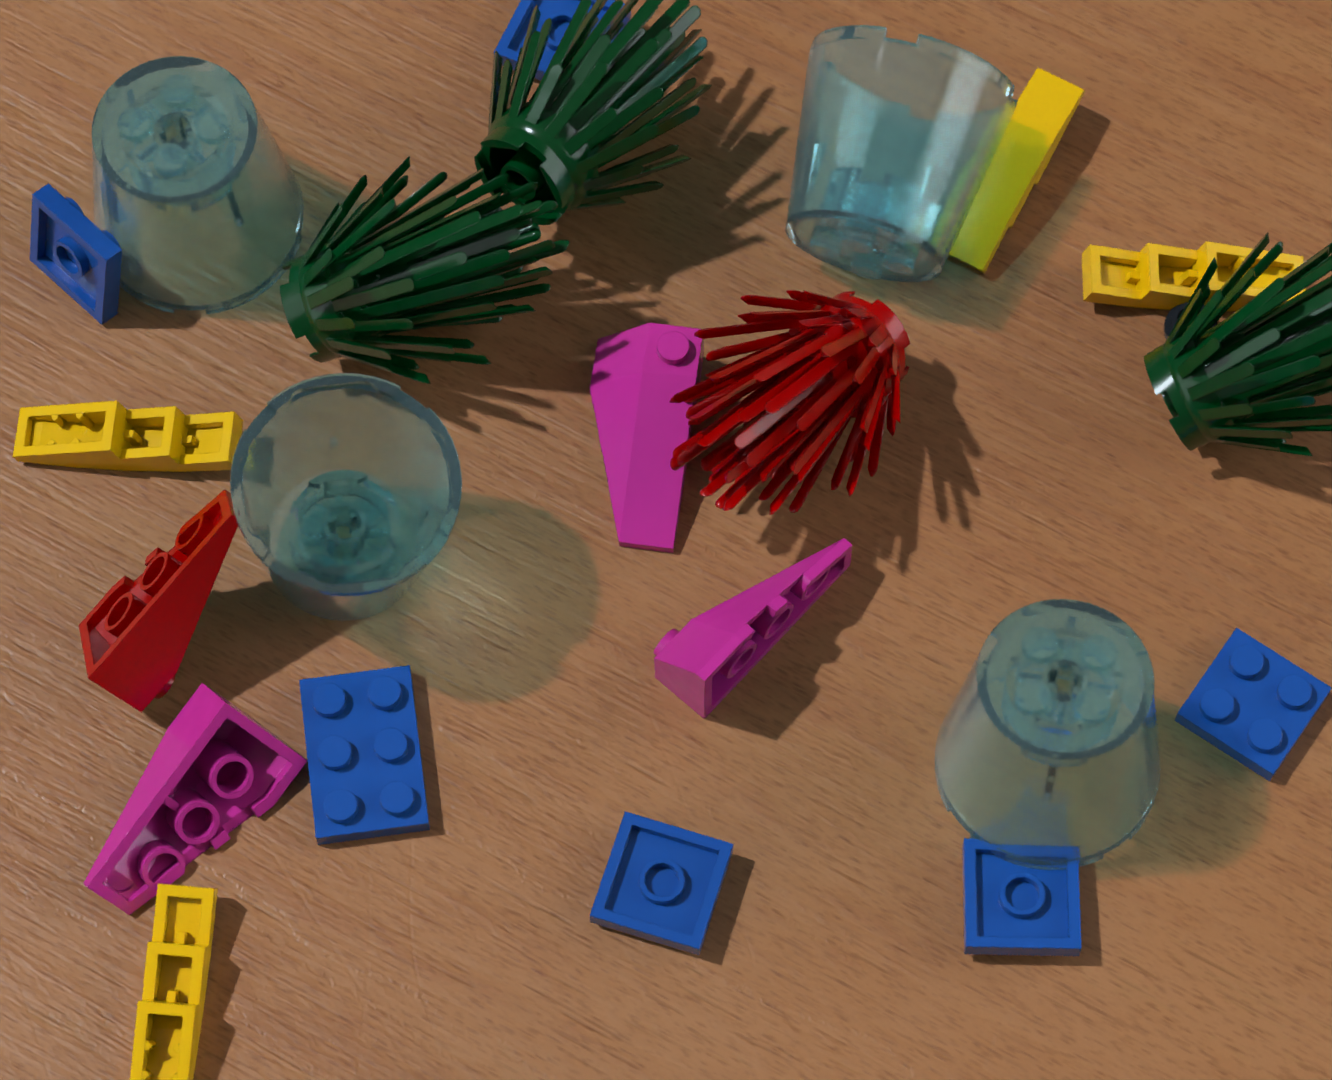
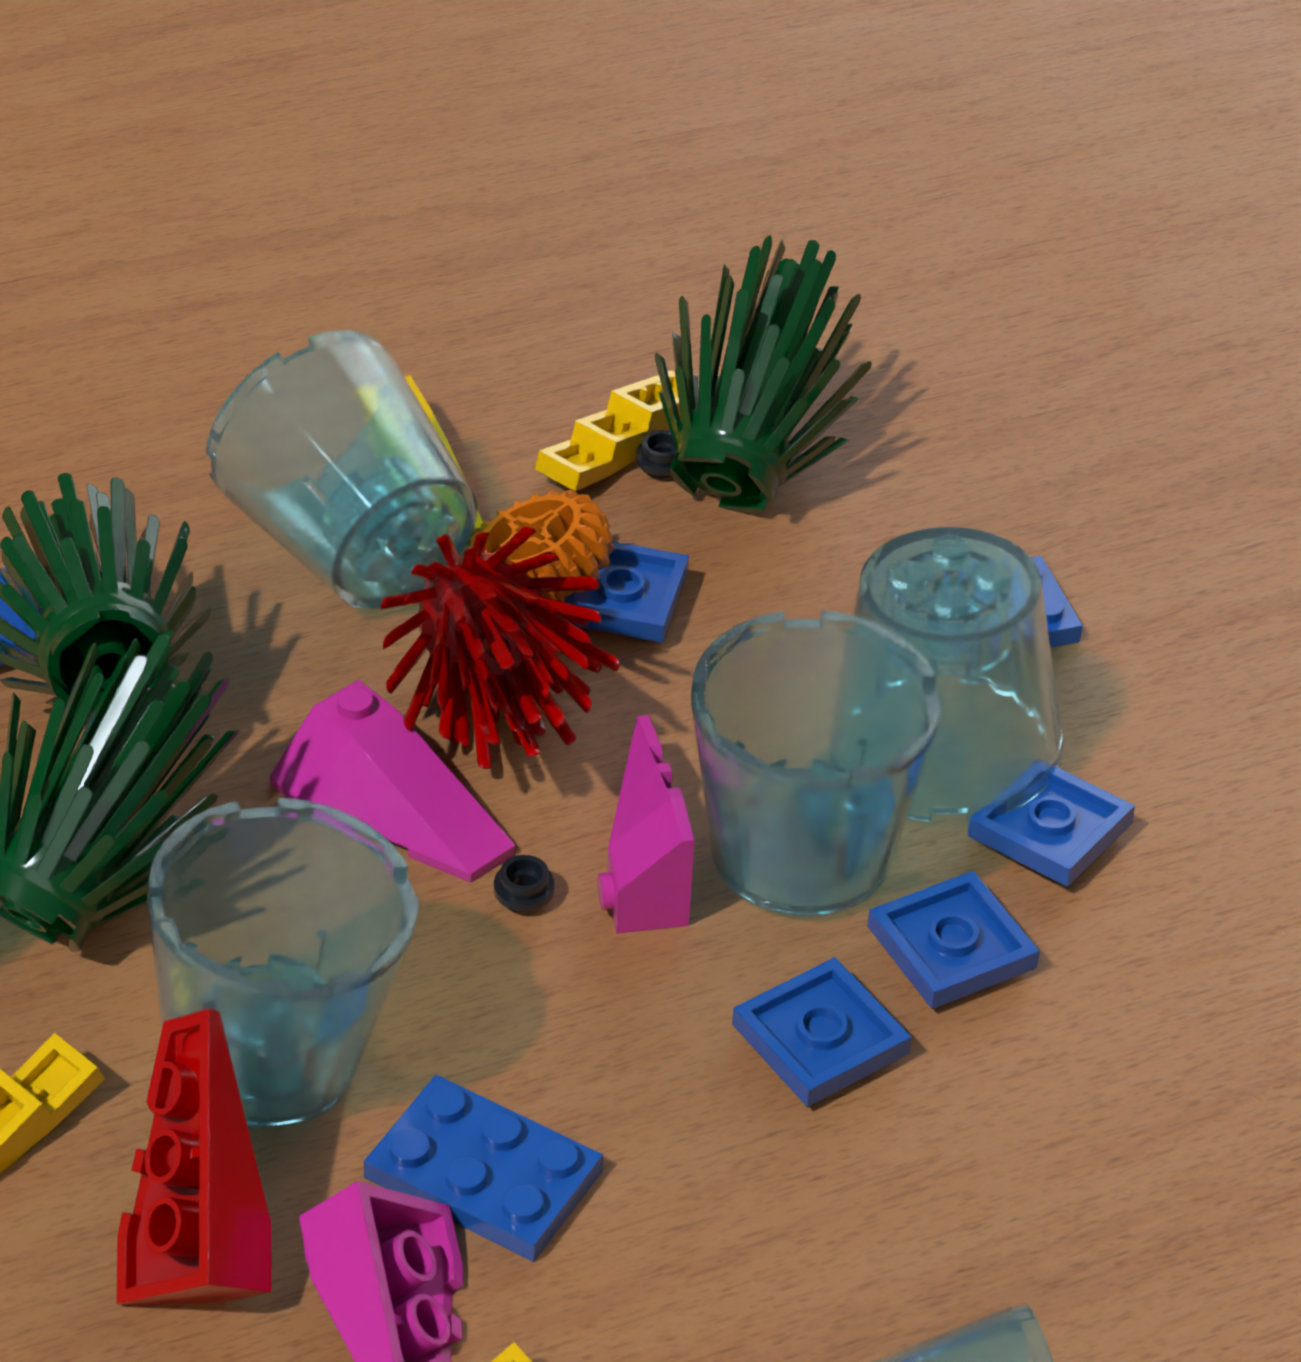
camera: 55 degrees left, 25 degrees down
(631, 571) = (524, 883): none -> black plate
(831, 910) = (953, 939): none -> blue plate
(853, 654) = (810, 755): none -> clear light blue cone
(969, 335) = (563, 525): none -> orange gear
(1001, 417) = (636, 592): none -> blue plate

